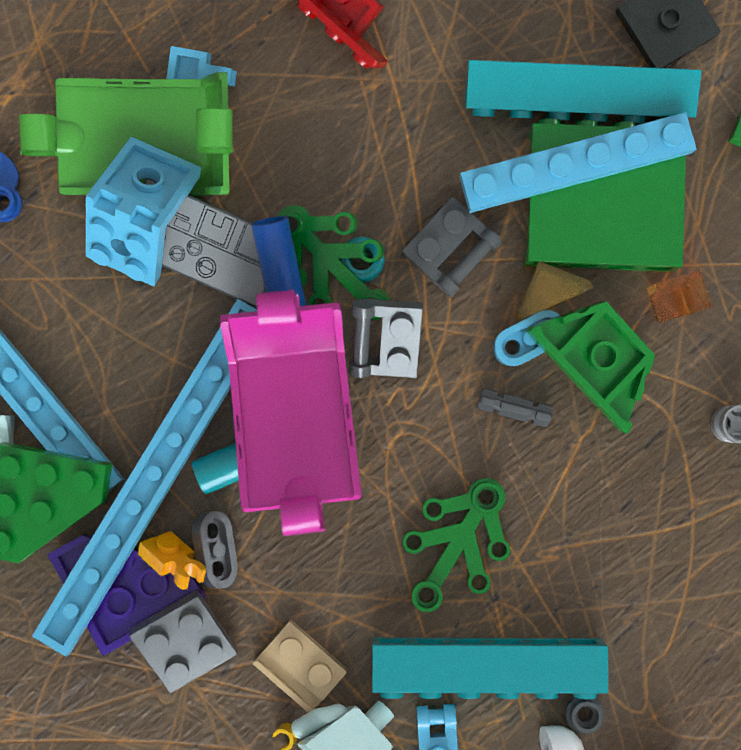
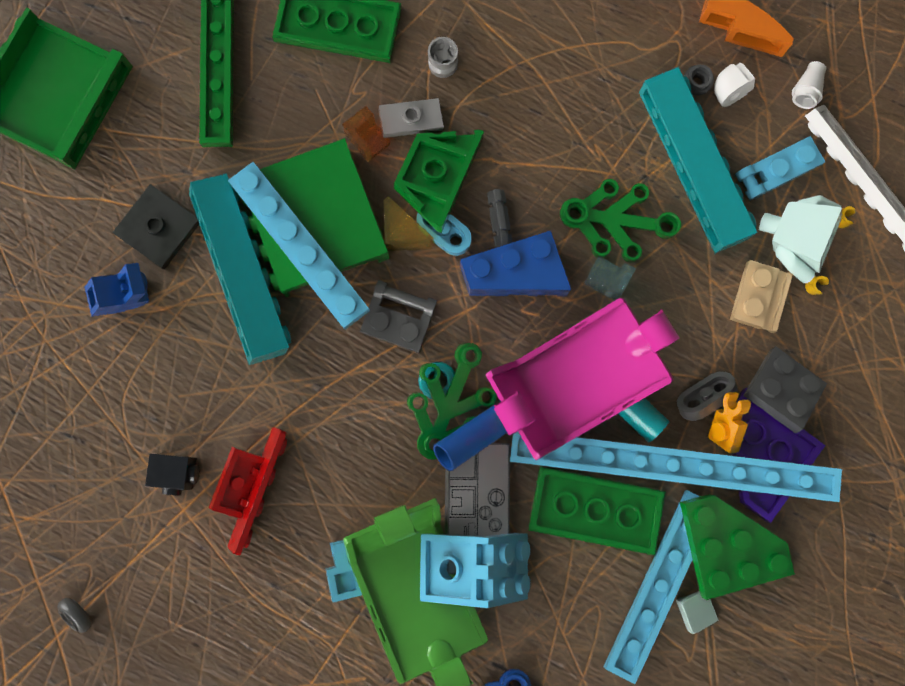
camera: 115 degrees left, 5 degrees down
(144, 372) = (596, 510): none -> green tile
(395, 501) = (609, 278): none -> clear light blue panel
(398, 338) = (488, 324): plate -> none
(448, 401) = (517, 268): none -> blue wedge
(677, 356) = (411, 118): none -> light grey plate

